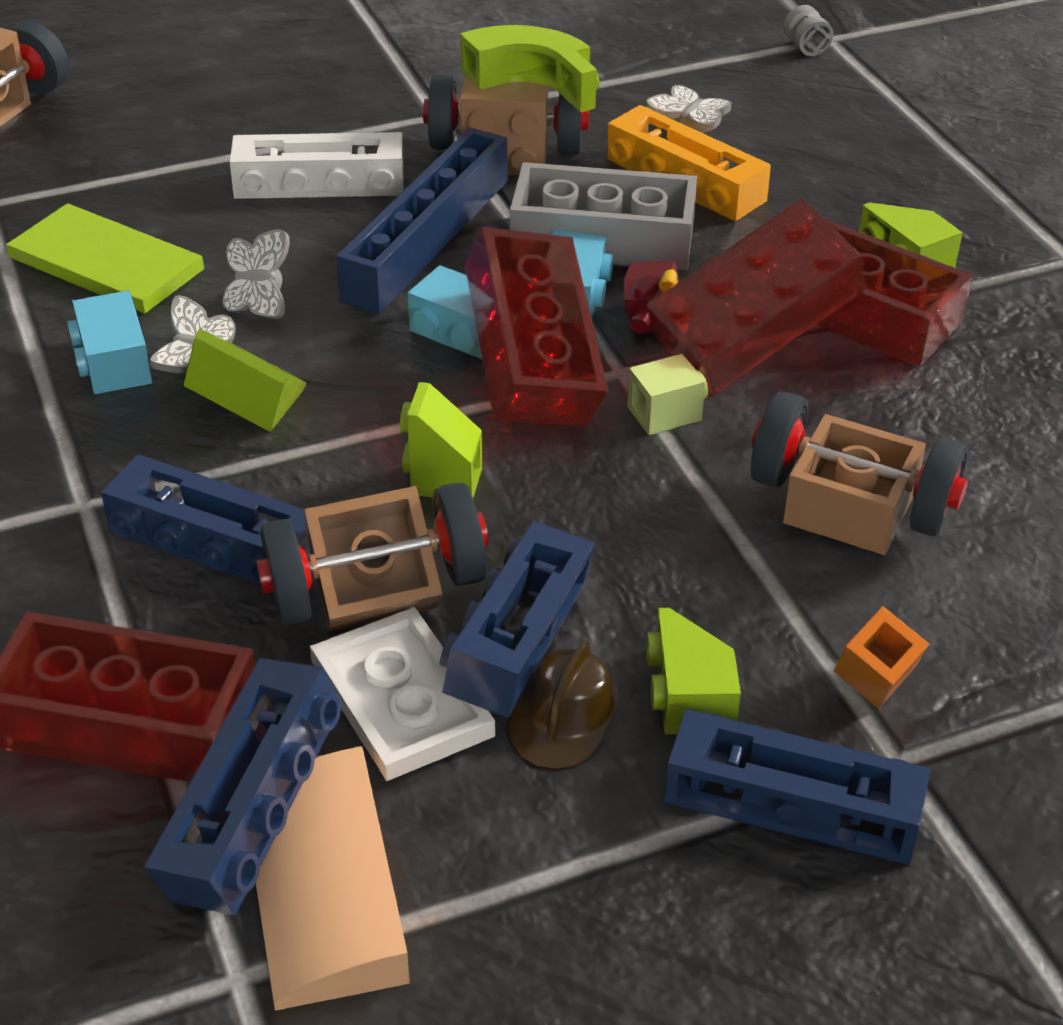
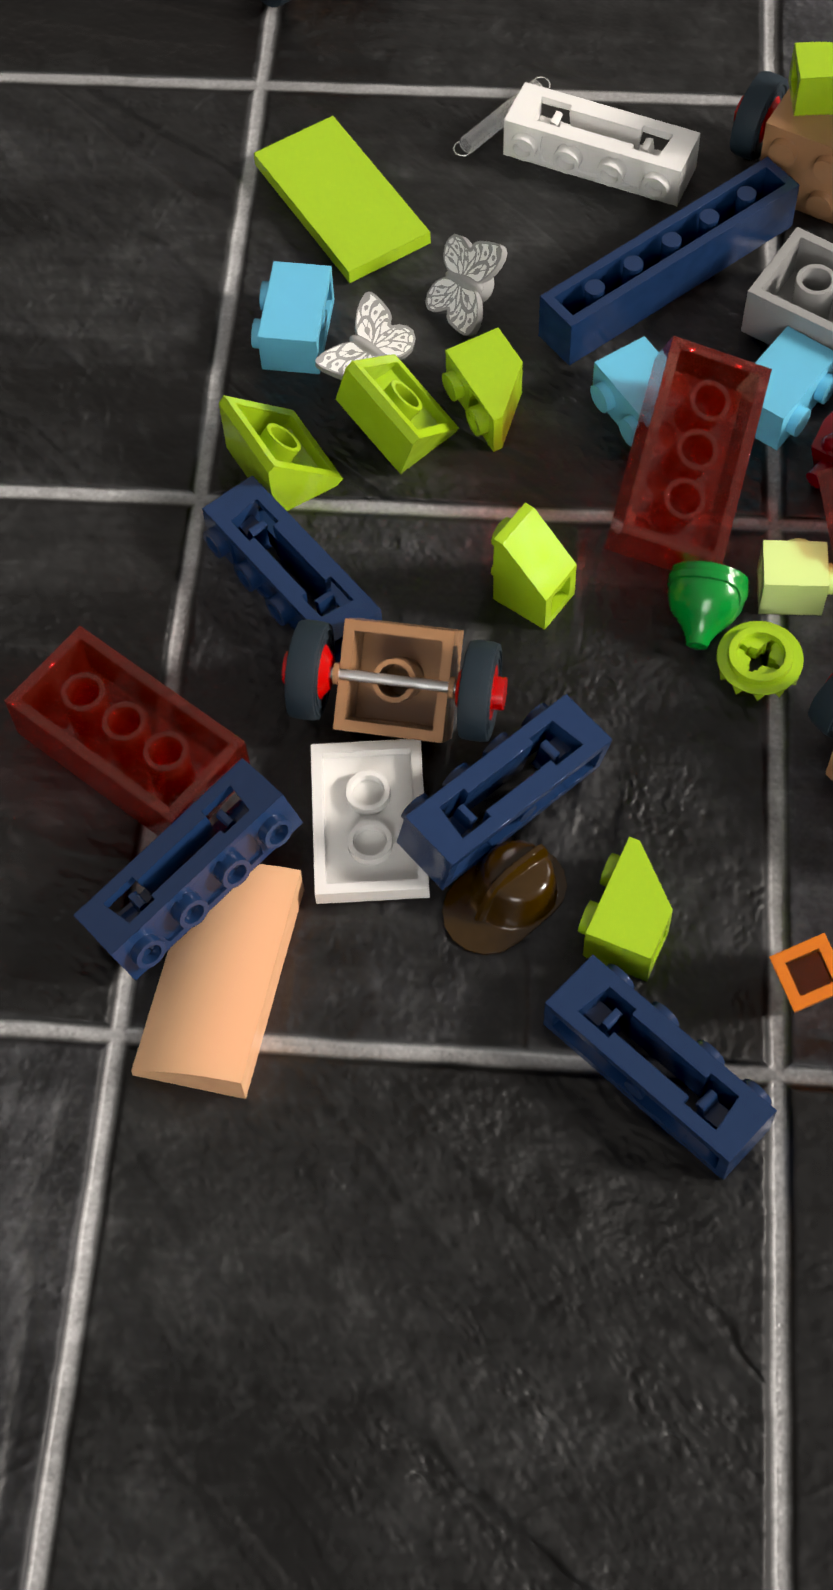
camera: 30 degrees right, 20 degrees up
(120, 433) = (276, 451): none -> lime slope
(215, 185) = (497, 129): none -> white piece
(314, 339) = (487, 383): none -> lime slope
(603, 425) = (705, 599): none -> green helmet
(657, 450) = (752, 640): none -> lime gear

